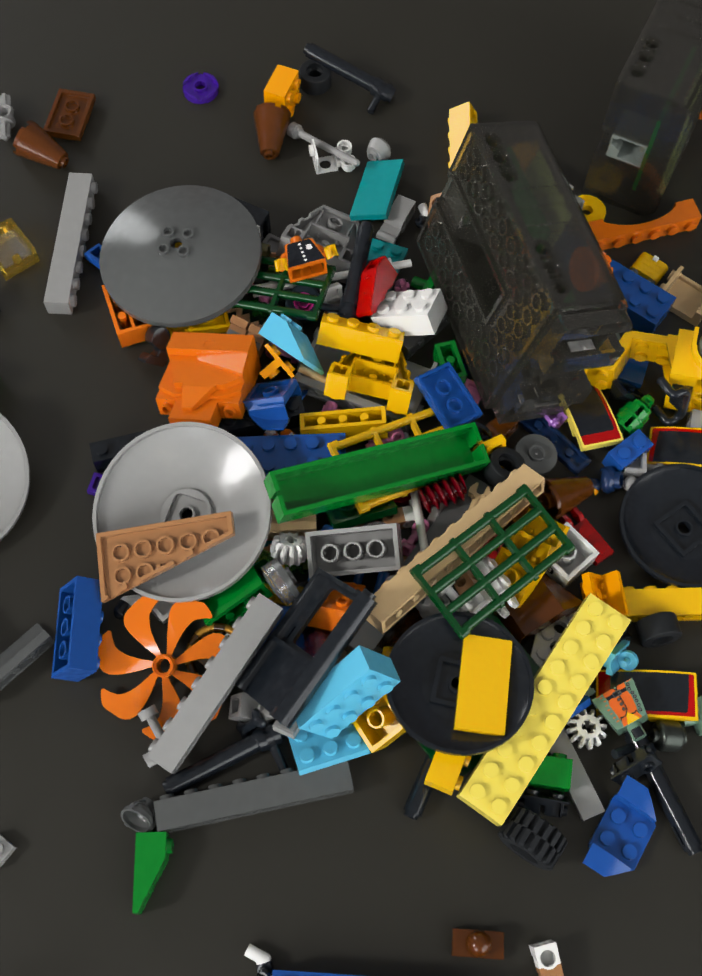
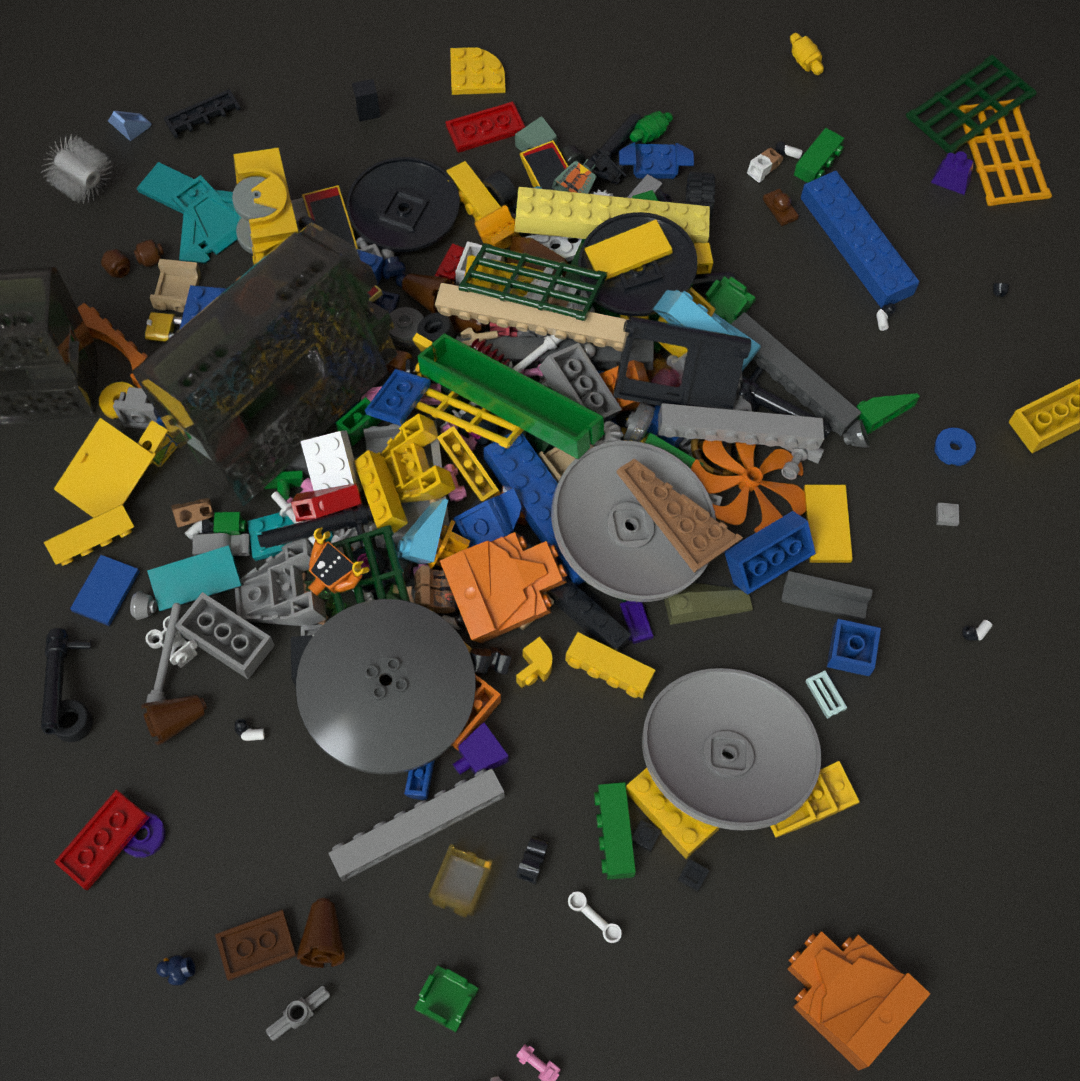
camera: 120 degrees left, 0 degrees up
(44, 915) = (955, 436): none -> blue tile
(74, 445) = (609, 665): none -> yellow brick
(76, 719) = (828, 523): none -> yellow tile
(79, 554) = (705, 602): none -> olive wedge
(89, 67) = (177, 969): none -> dark blue animal
(89, 309) = (480, 752): none -> dark purple torso
(129, 389) = (540, 663): none -> yellow brick
(212, 62) = (101, 840): none -> red tile
(226, 174) = (247, 732): none -> arm
(283, 88) = (118, 729): light orange brick -> none
(312, 186) = (225, 635): none -> light grey brick
(380, 783) = (729, 299): none -> green panel
(409, 232) = (229, 523): none -> green brick
(410, 137) = (105, 590): none -> blue tile
(670, 856) = (651, 127): none -> green piece

